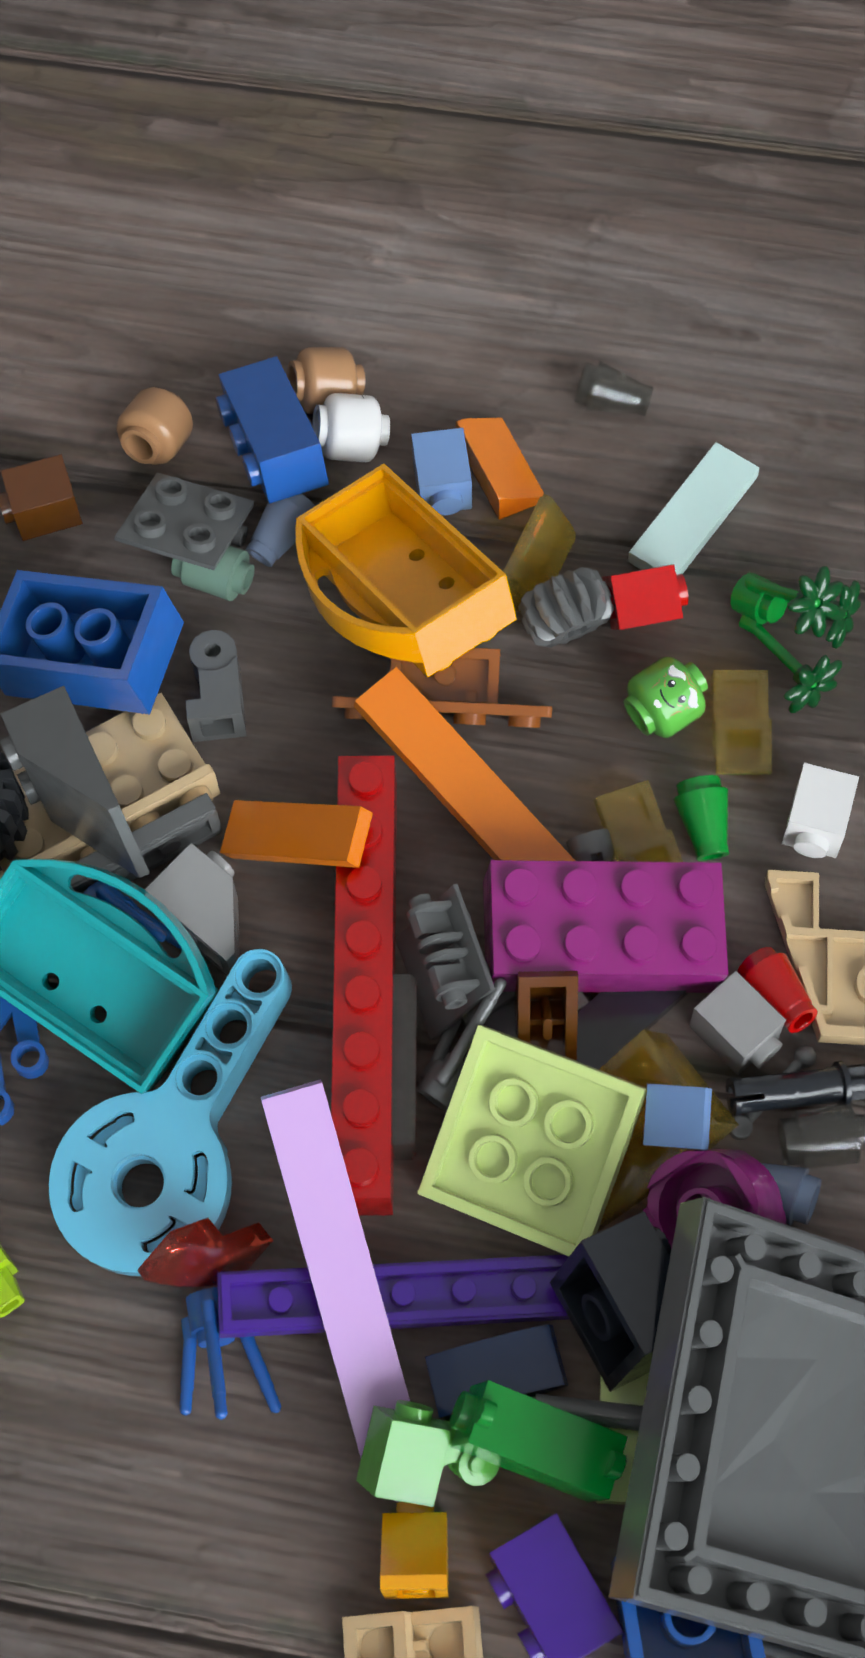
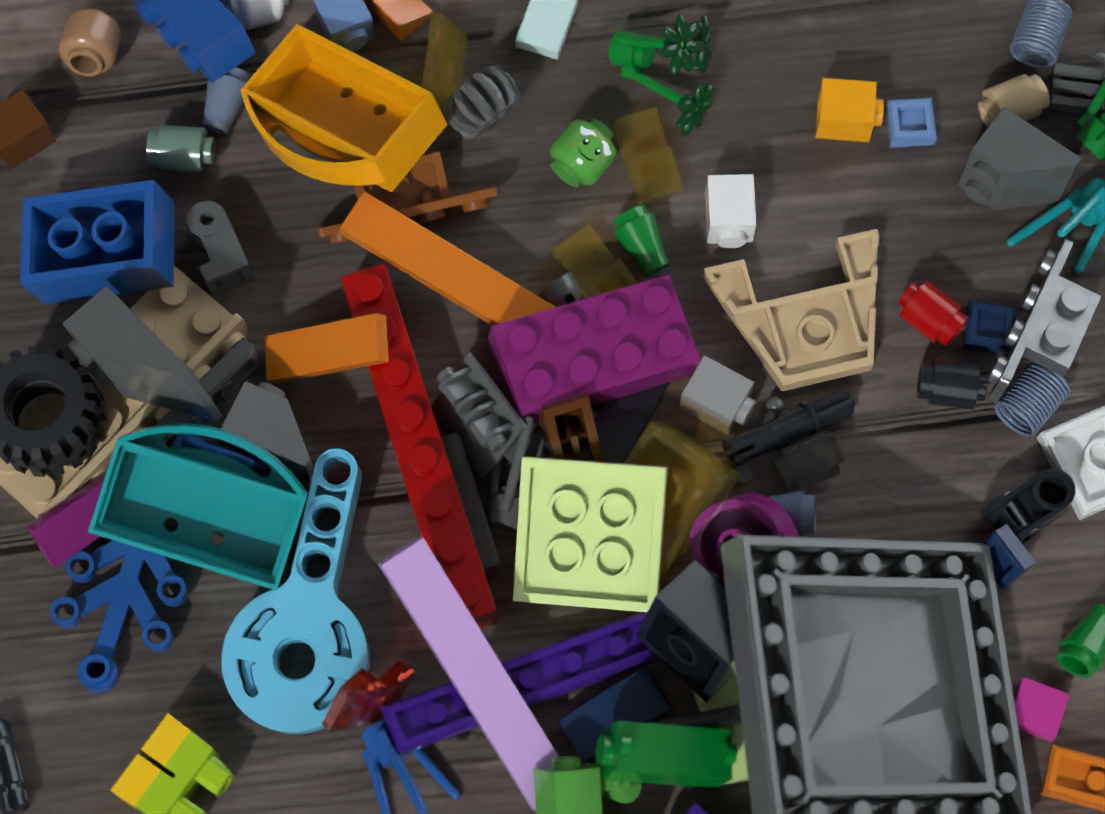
camera: 20 degrees left, 5 degrees up
(186, 521) = (146, 117): dark grey hinge -> none
(646, 596) = (542, 74): brick -> none
(677, 1116) = (696, 481): medium blue tile -> none
(780, 986) = (737, 354): red cone -> none

